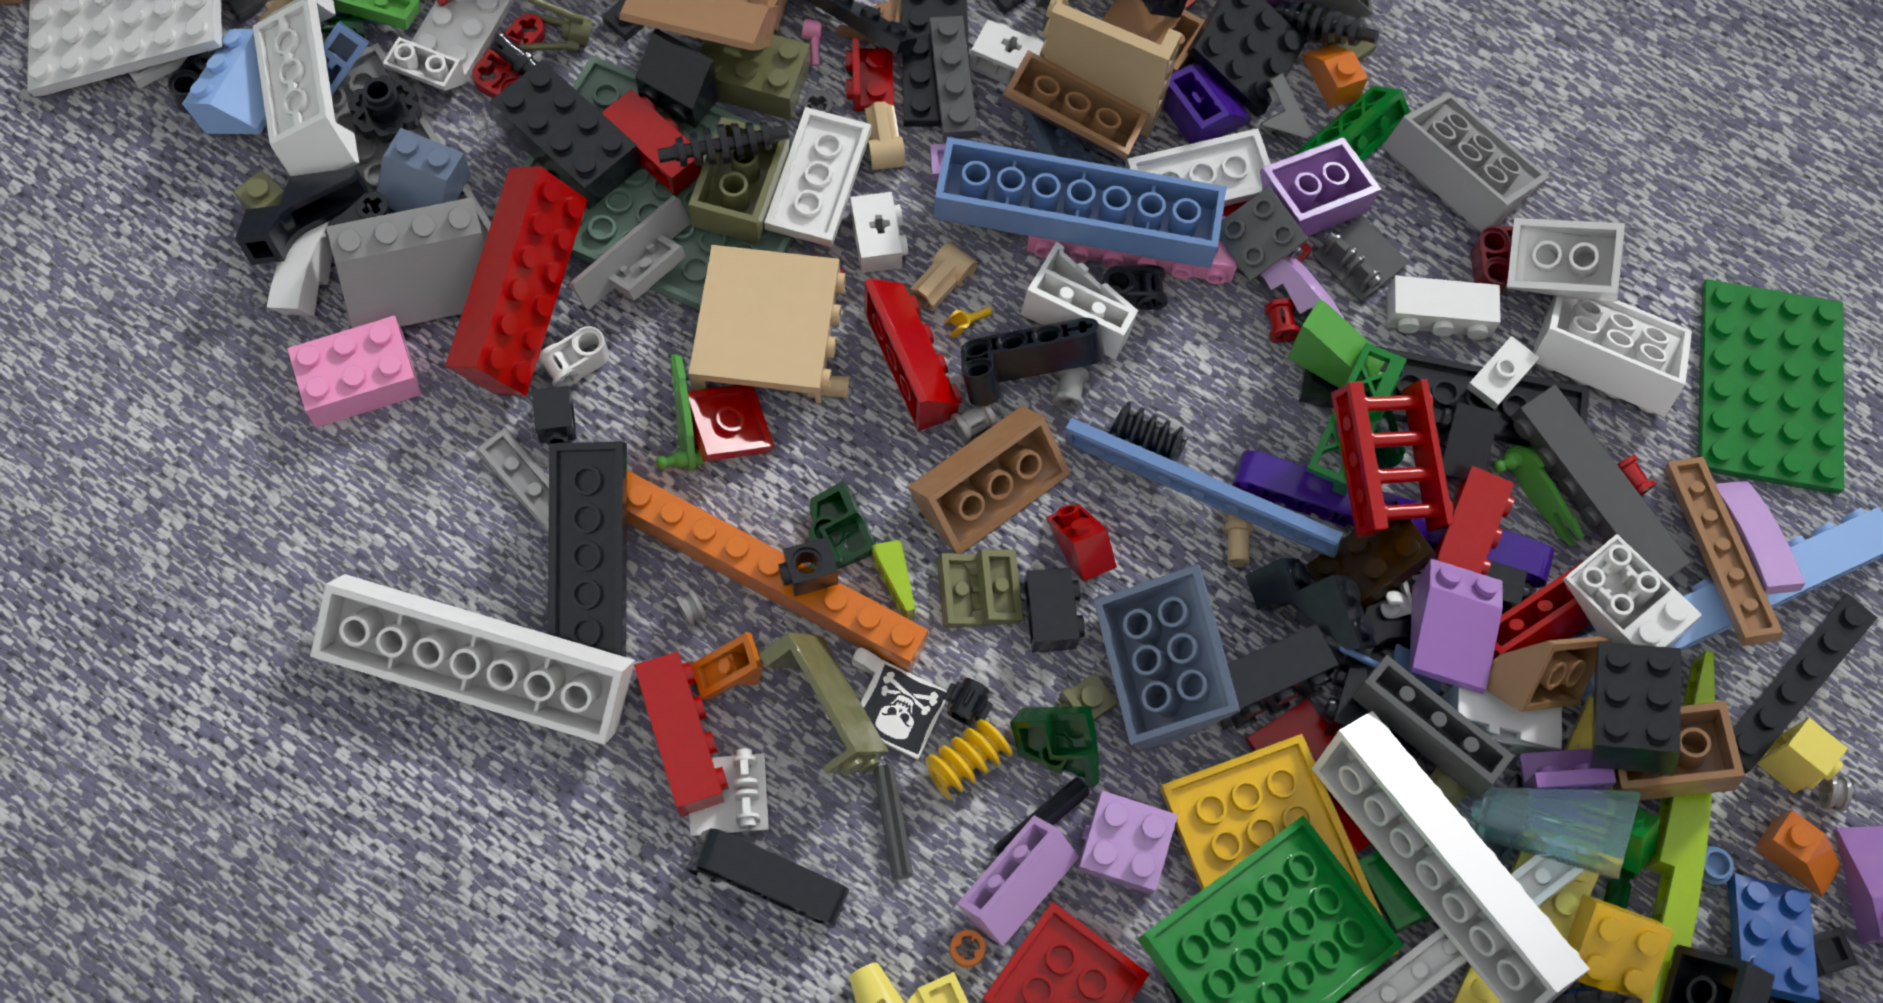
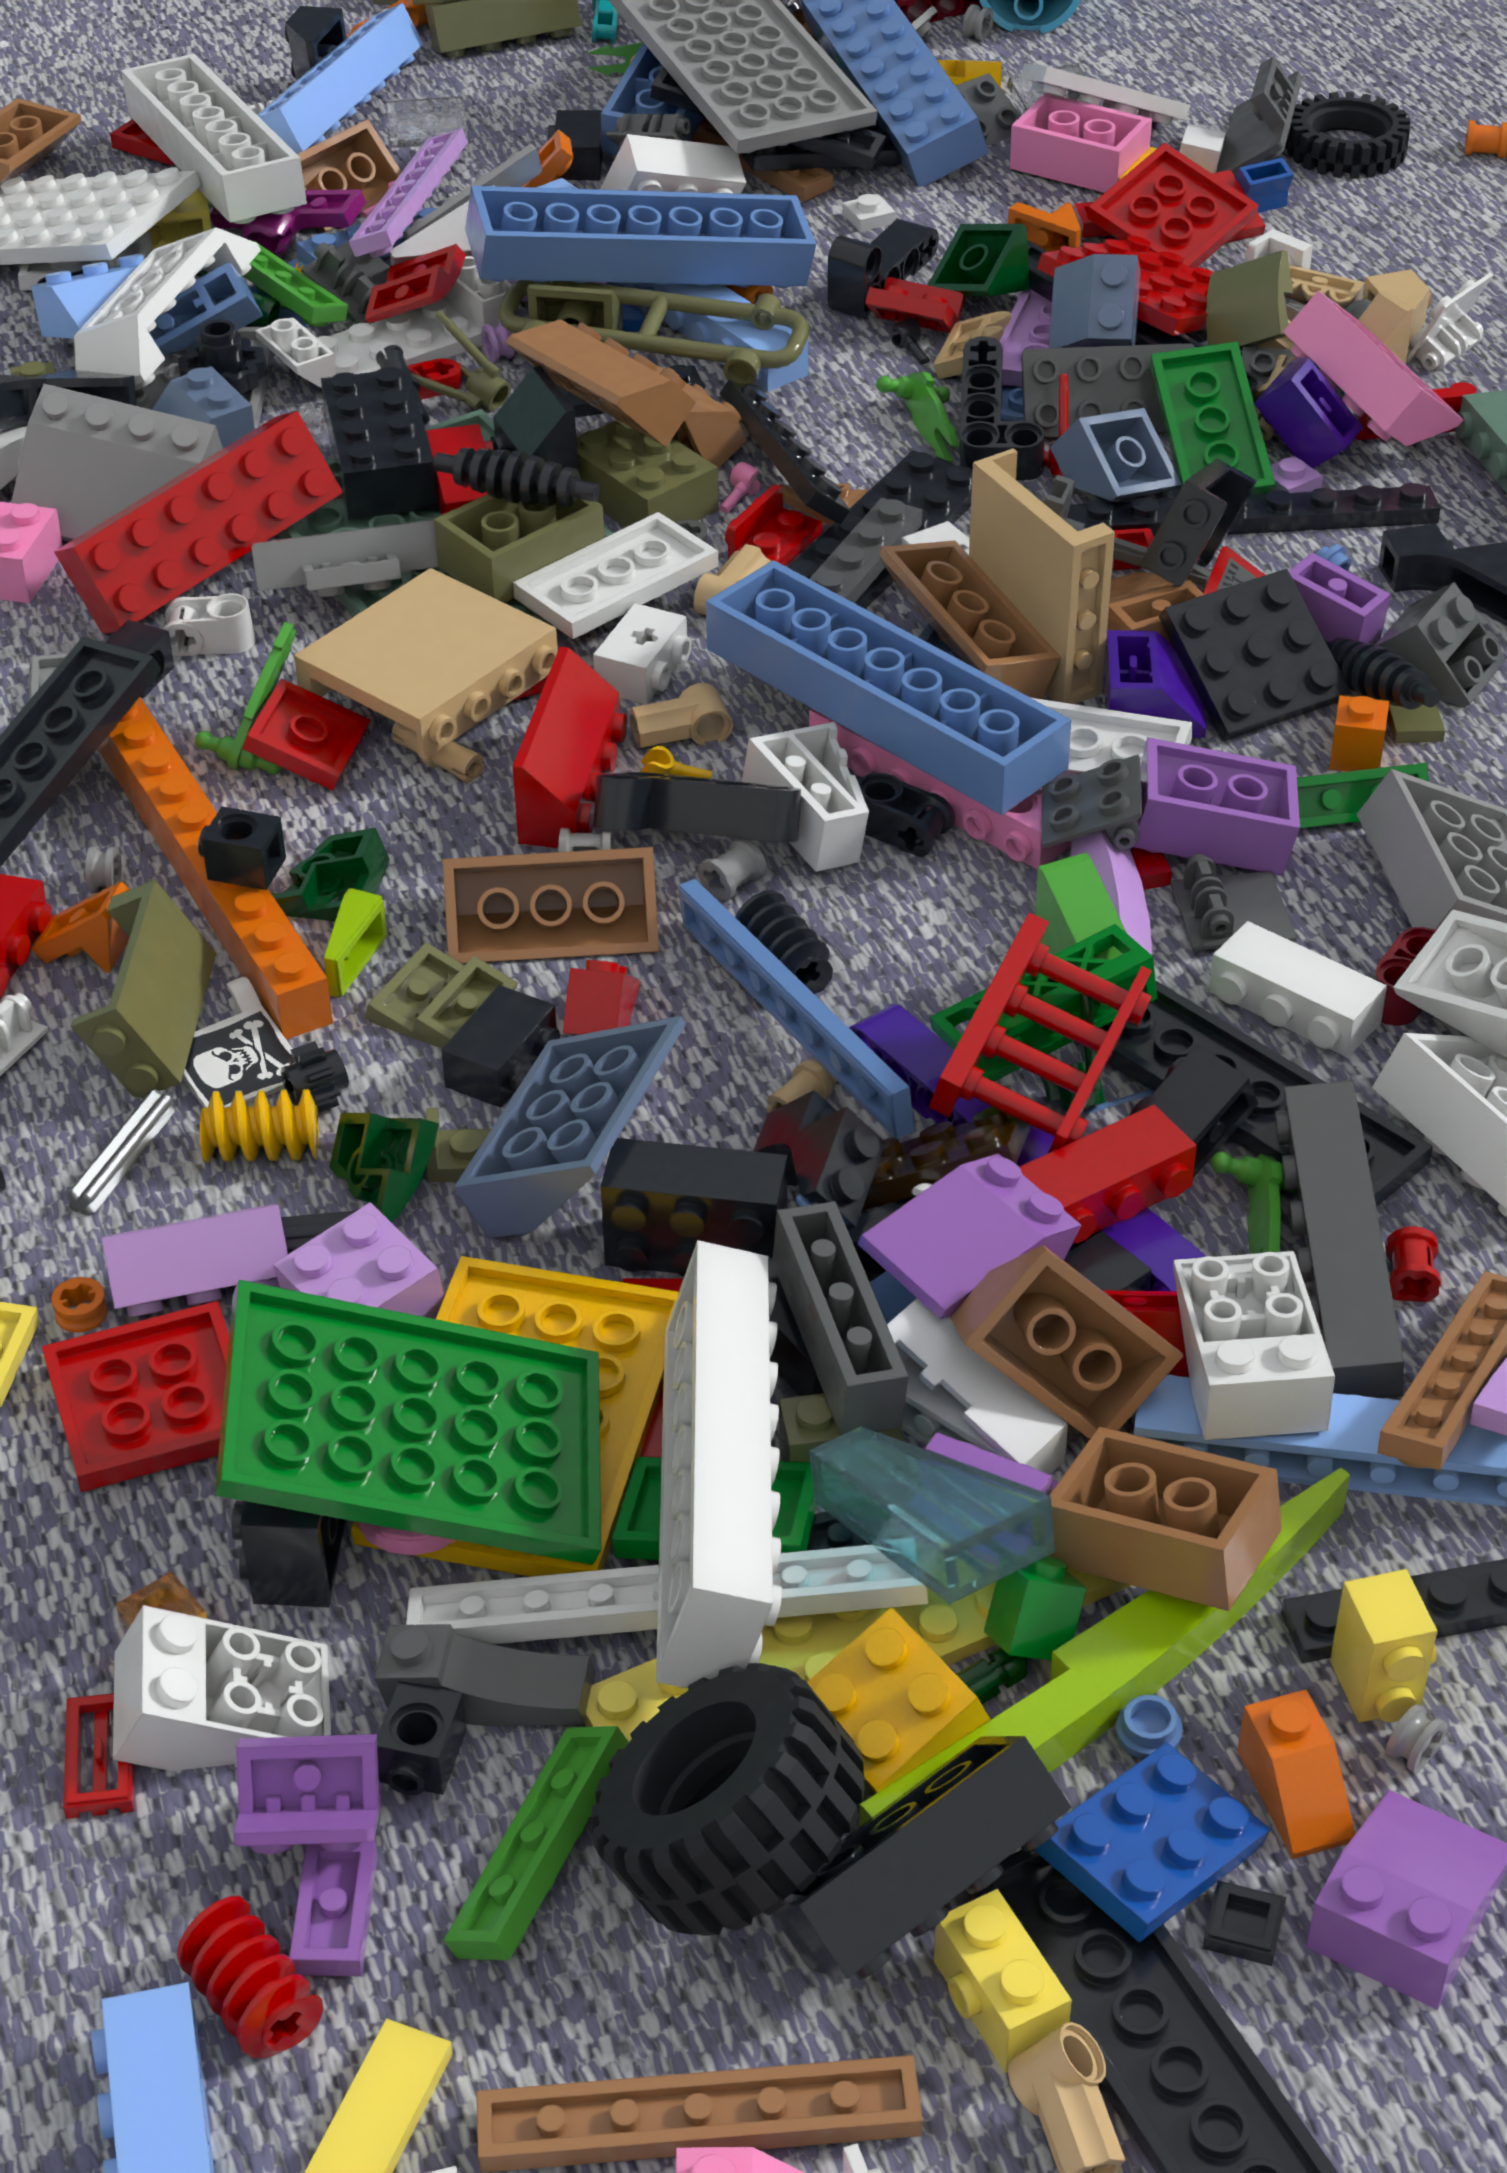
camera: 40 degrees right, 25 degrees down
(1291, 119) = (1258, 727): light grey slope -> none
(1502, 372) = (1312, 1065): white plate -> none
(1636, 708) = (1130, 1409): black brick -> none

